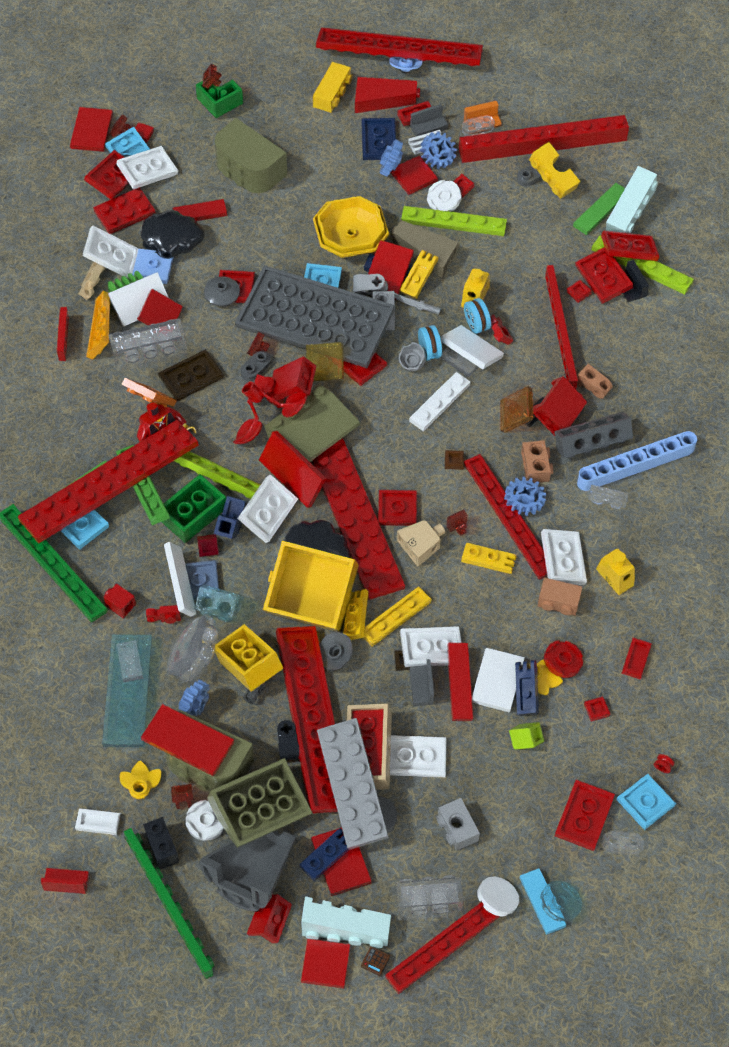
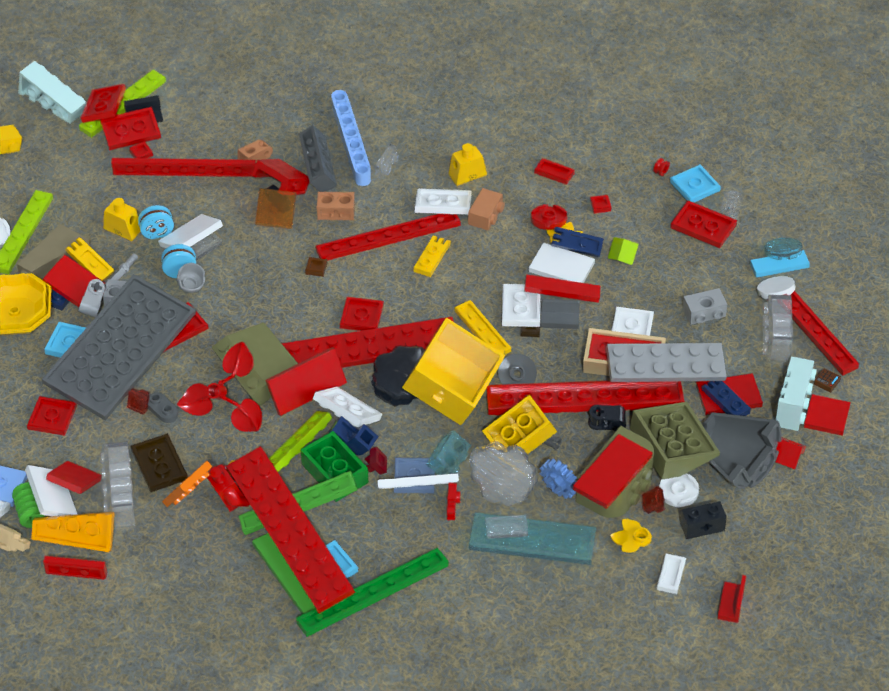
camera: 80 degrees left, 10 degrees down
(119, 600) = (429, 536): red brick -> none
(173, 909) = (762, 520): green plate -> none
(222, 291) = (58, 424): dark grey dish -> none
(292, 378) = (201, 365): red panel -> none
(328, 359) = (180, 344): clear yellow tile -> none
(420, 540) = (407, 298): tan torso -> none
(439, 401) = (245, 269): white plate -> none
(457, 522) = (392, 269): clear red tile -> none
(500, 332) = (179, 211): red plate -> none
(525, 495) = (373, 217): medium blue gear -> none
(599, 210) = (44, 121): bright green tile -> none

